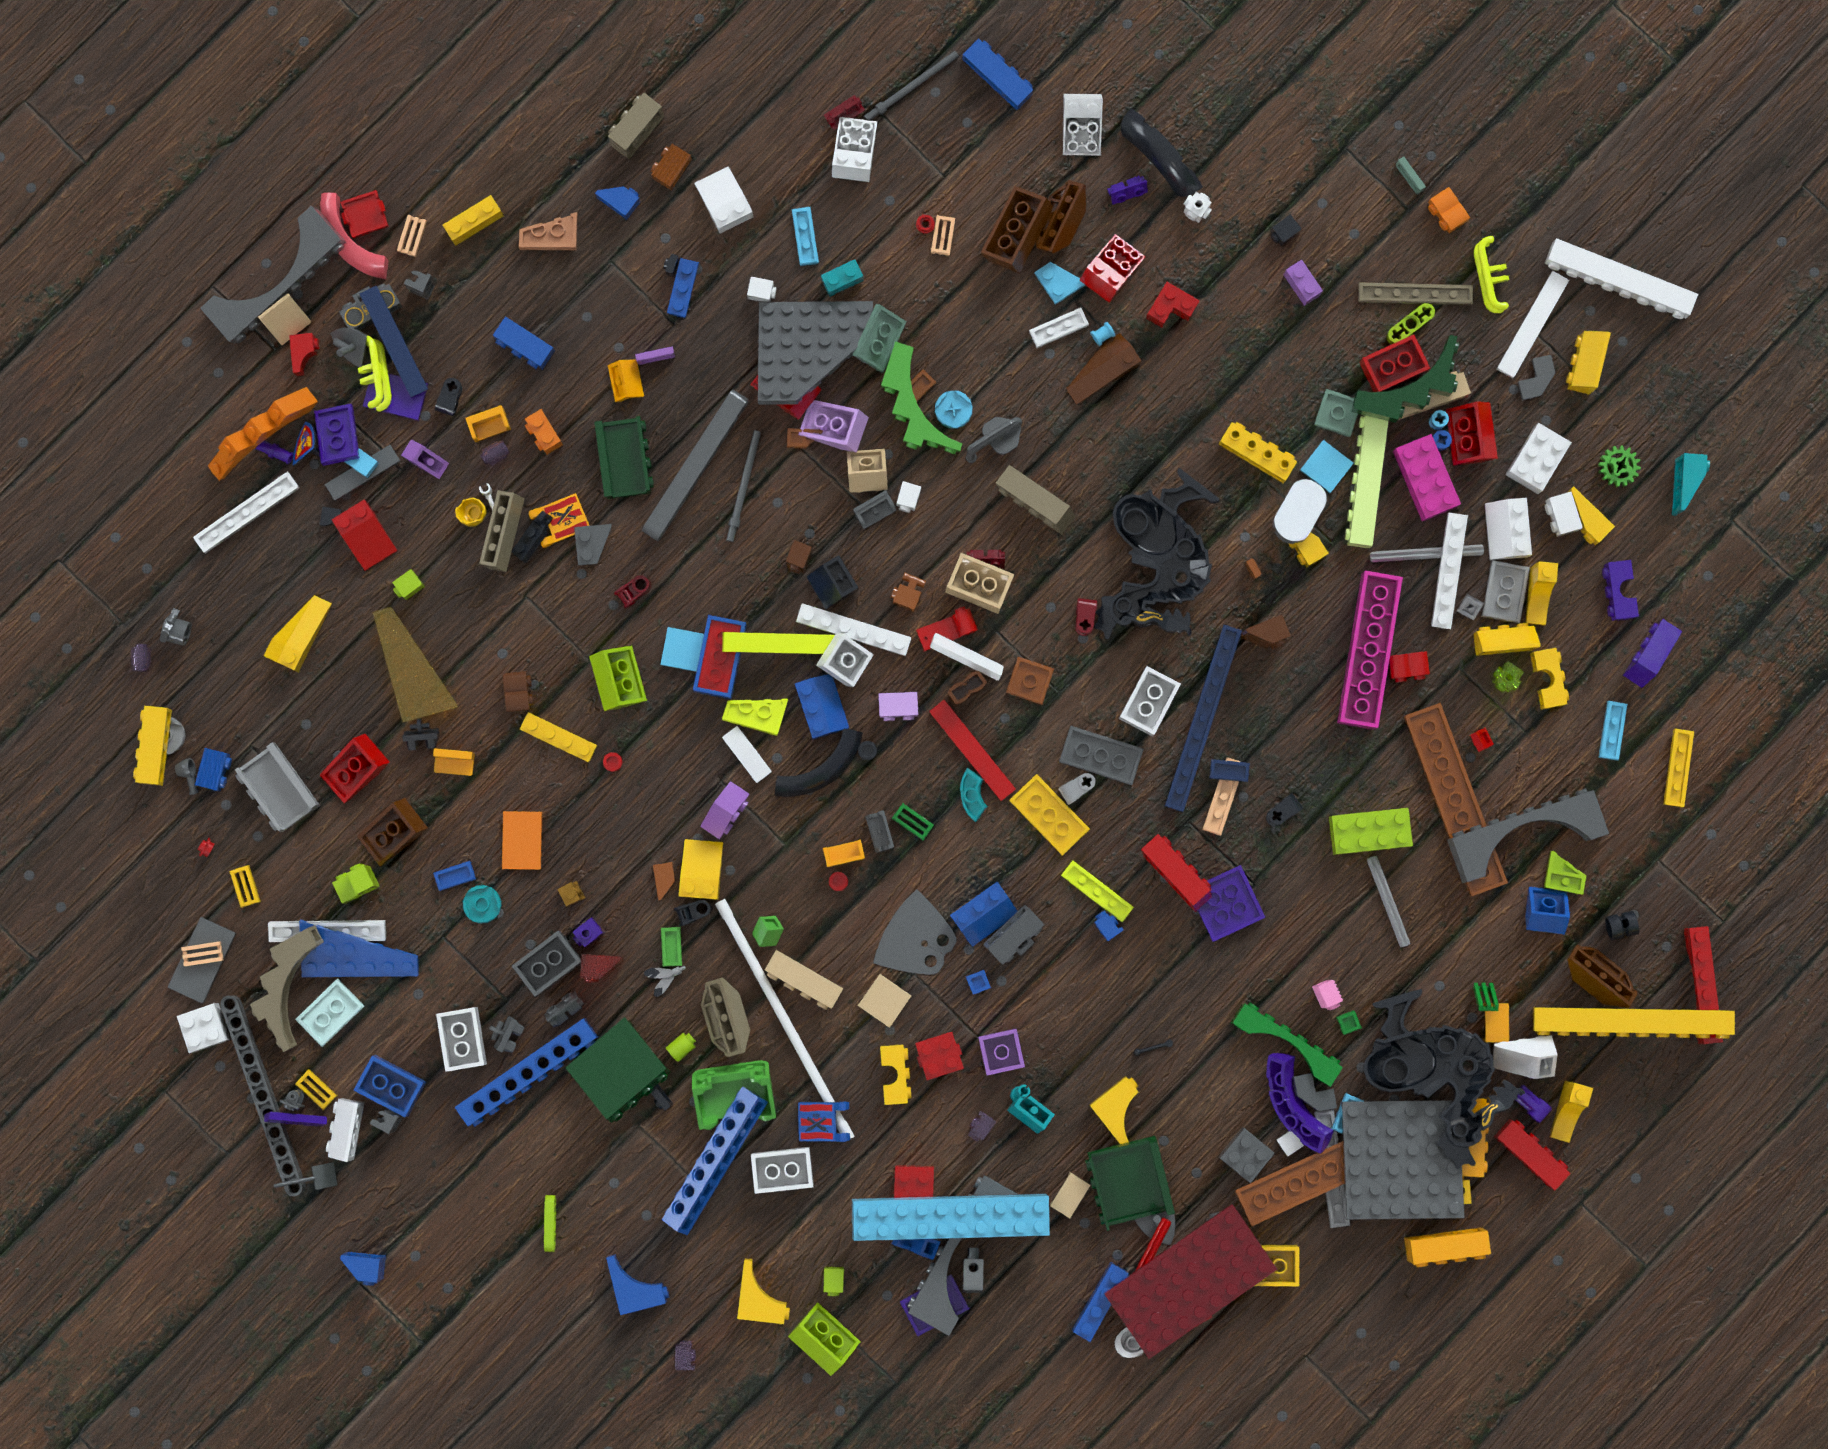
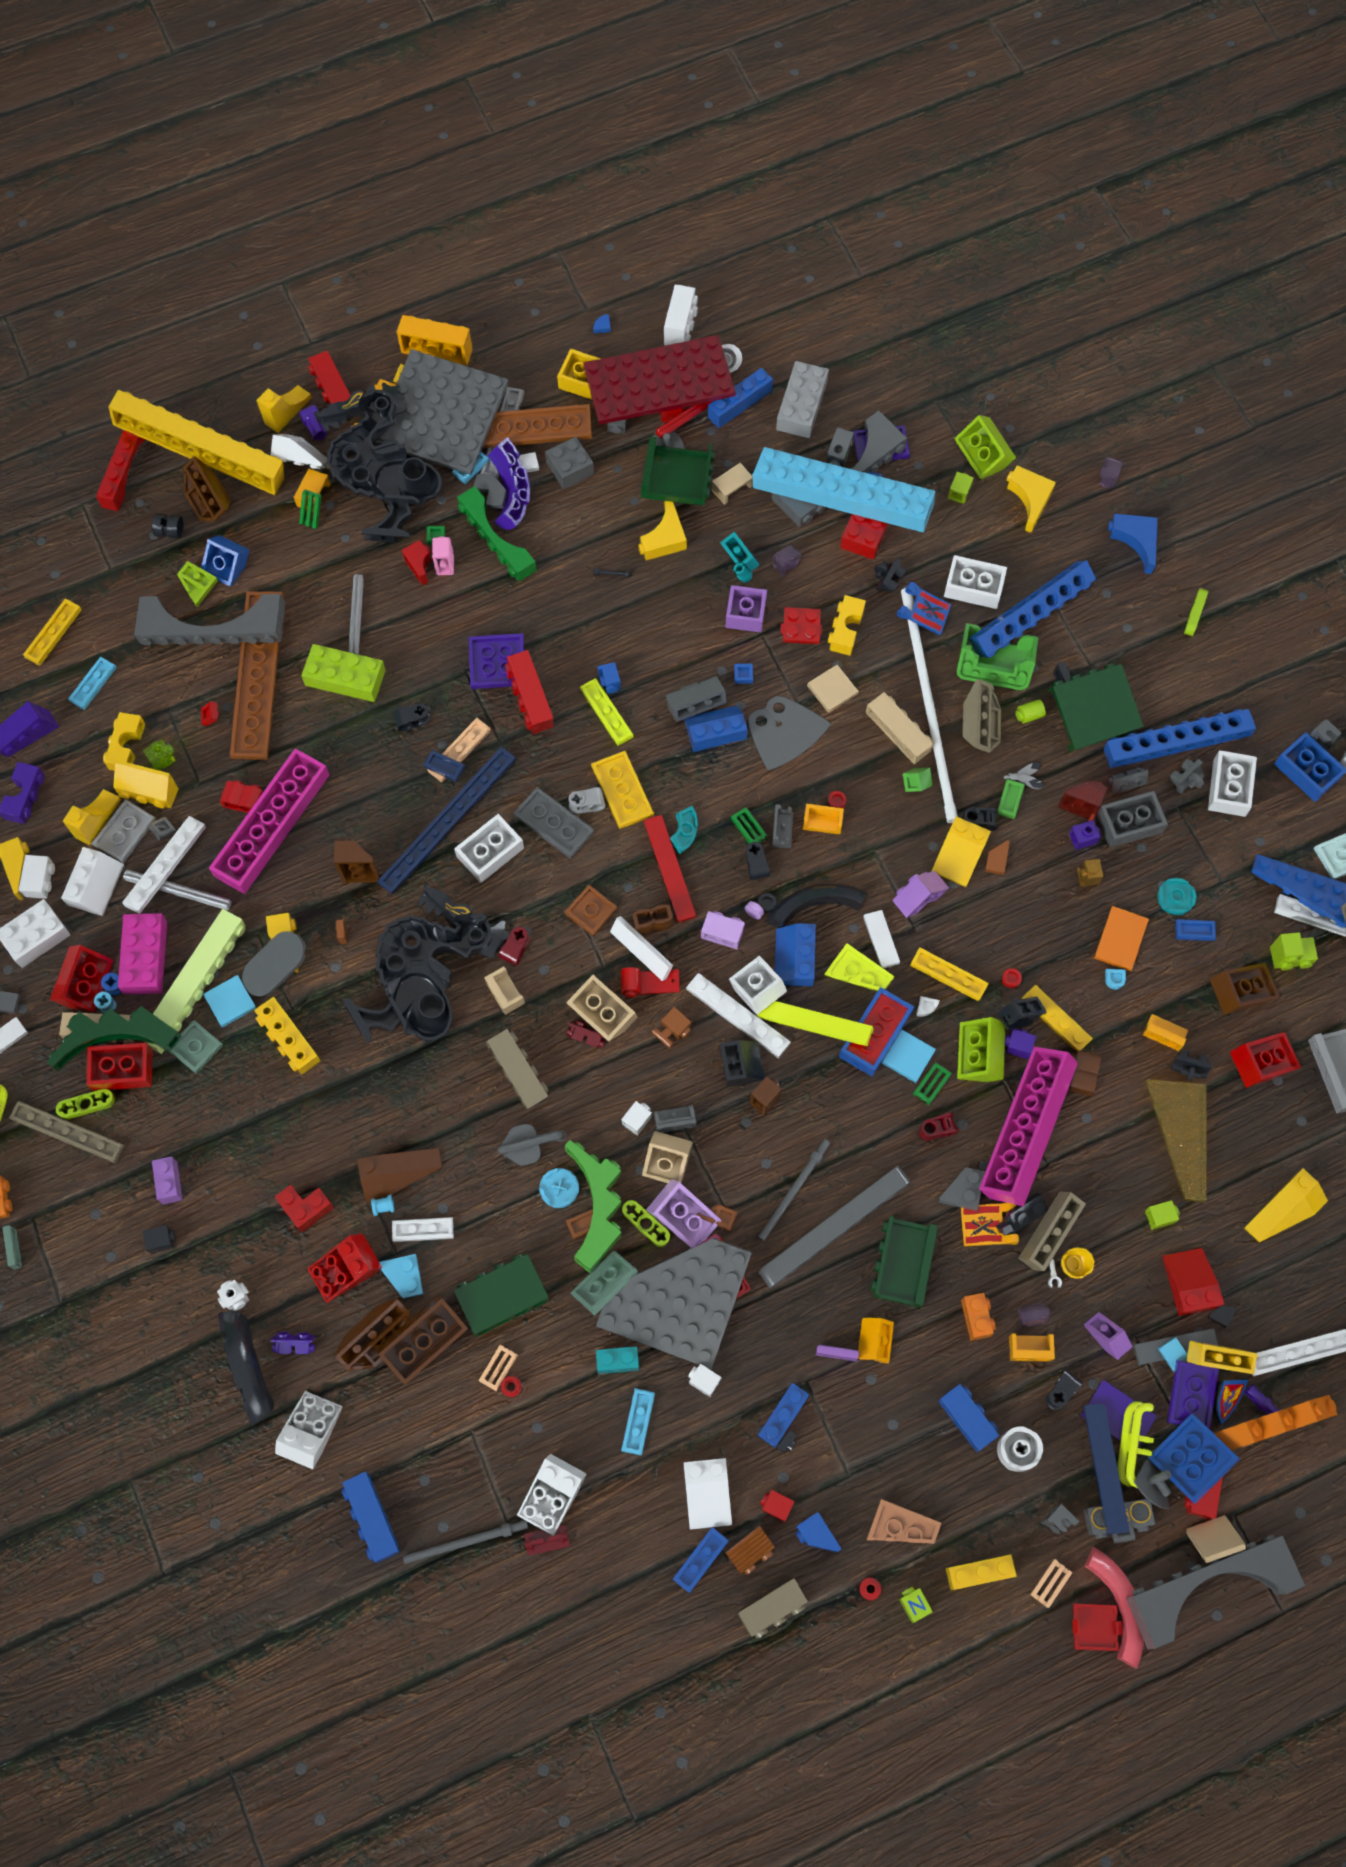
camera: 155 degrees left, 15 degrees down
(321, 377) = (1194, 1458): none -> blue plate
(321, 472) = (1221, 1357): none -> yellow brick
(479, 324) = (1023, 1438): none -> white brick
(515, 798) = (1115, 978): none -> medium azure tile
(519, 175) = (915, 1604): none -> lime brick
(552, 618) = (1028, 1126): none -> dark pink brick
(560, 180) = (863, 1591): none -> red plate
(585, 698) = (1020, 1043): none -> dark purple brick
(591, 723) = (1022, 1012): none -> black hinge
(660, 633) = (923, 1096): none -> green tile
(661, 210) = (776, 1505): none -> red brick
(671, 742) = (949, 974): none -> yellow plate
(682, 704) = (926, 1006): none -> white tile
(709, 144) = (700, 1560): none -> blue plate
(875, 1148) = (893, 569): none -> black hips
(876, 736) = (754, 910): none -> lavender tile
(879, 406) = (631, 1217): none -> lime beam
(889, 783) = (757, 864): none -> black piece
(965, 295) = (501, 1295): none -> dark green panel
(1034, 1325) = (802, 399): none -> light grey brick
(1077, 570) = (504, 990): none -> tan panel
(1199, 1373) = (680, 315): none -> white brick
(1282, 1342) = (602, 324): none -> blue tile
(1354, 985) = (417, 558): none -> red arch

